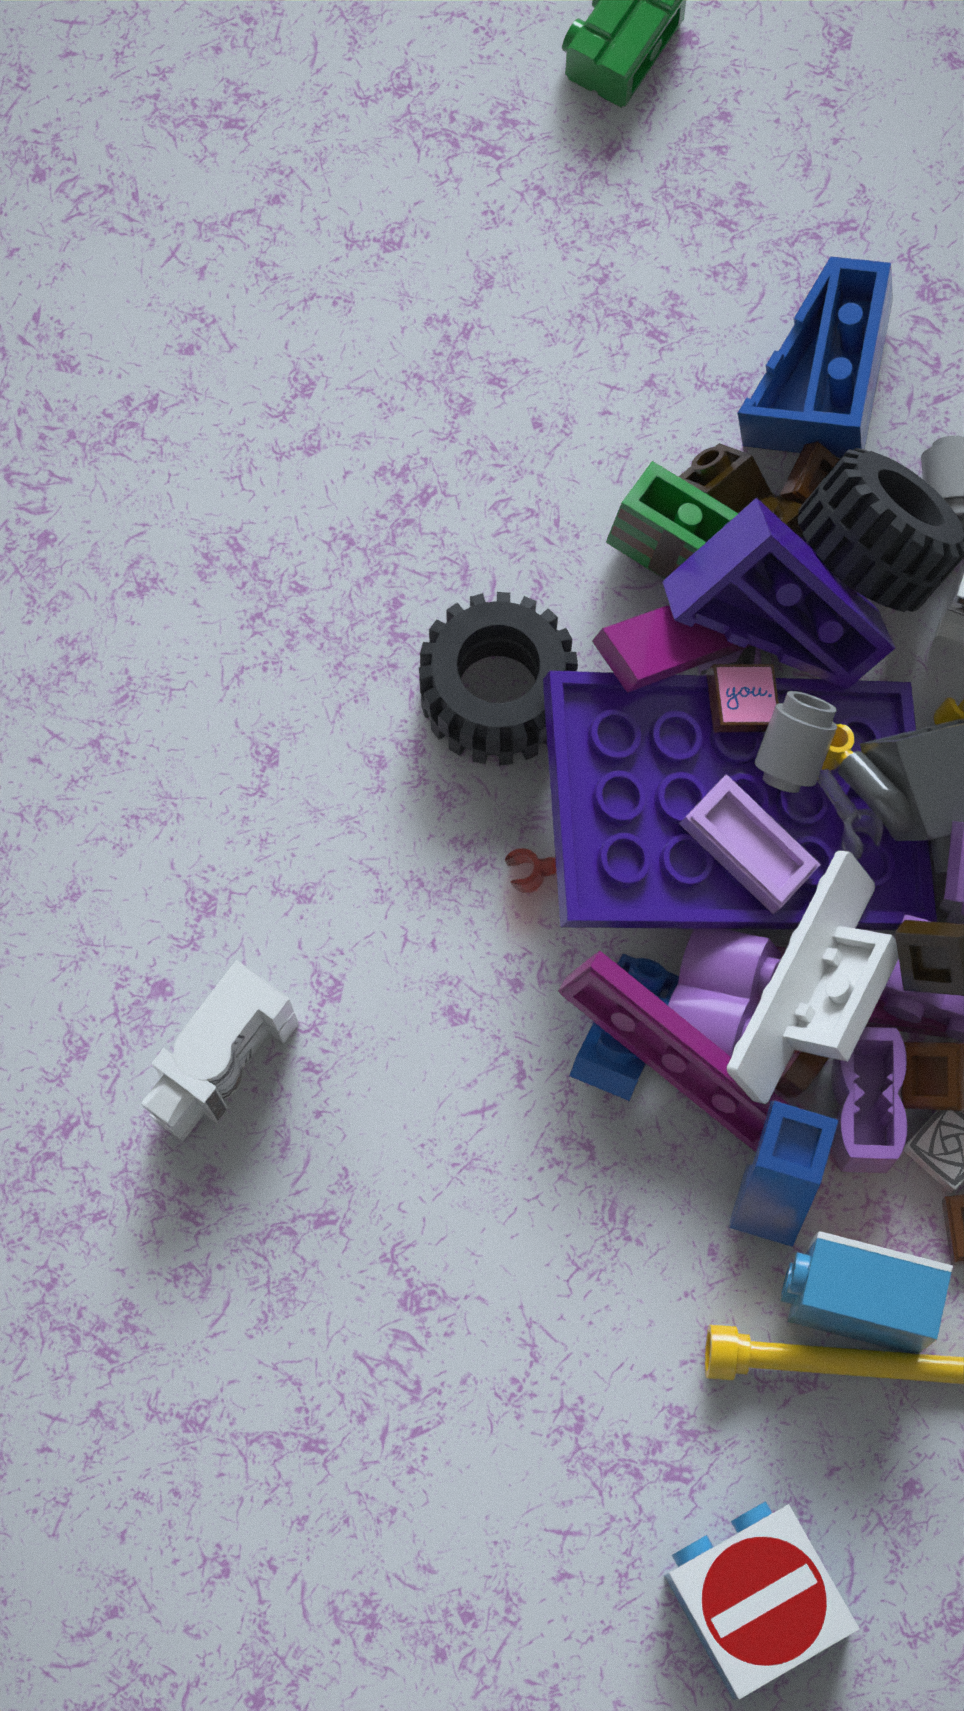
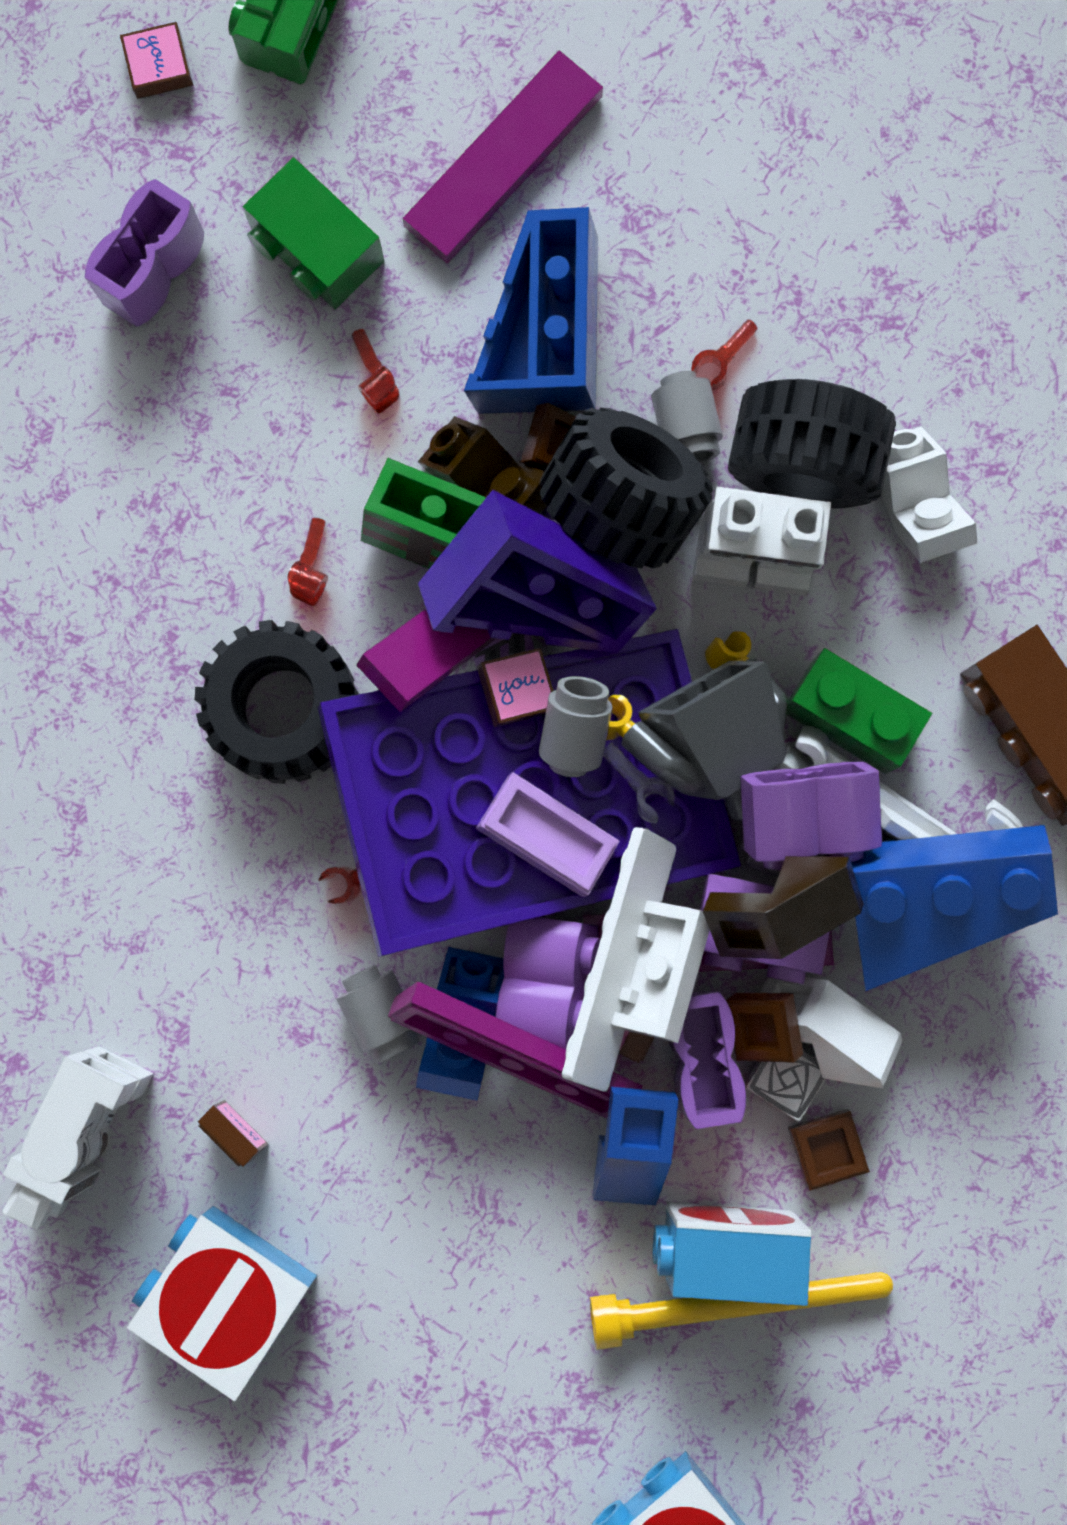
camera: 10 degrees left, 10 degrees up
(332, 1250) = (219, 1300): none -> piece
(373, 1090) = (232, 1133): none -> reddish brown tile
(446, 233) = (153, 245): none -> medium lavender brick
(484, 60) = (156, 60): none -> bright pink tile
(536, 1004) = (367, 1011): none -> light grey brick
(543, 572) = (303, 580): none -> clear red hand
(610, 247) = (312, 234): none -> green brick
(650, 402) = (380, 387): none -> clear red hand
(810, 208) = (503, 157): none -> magenta tile

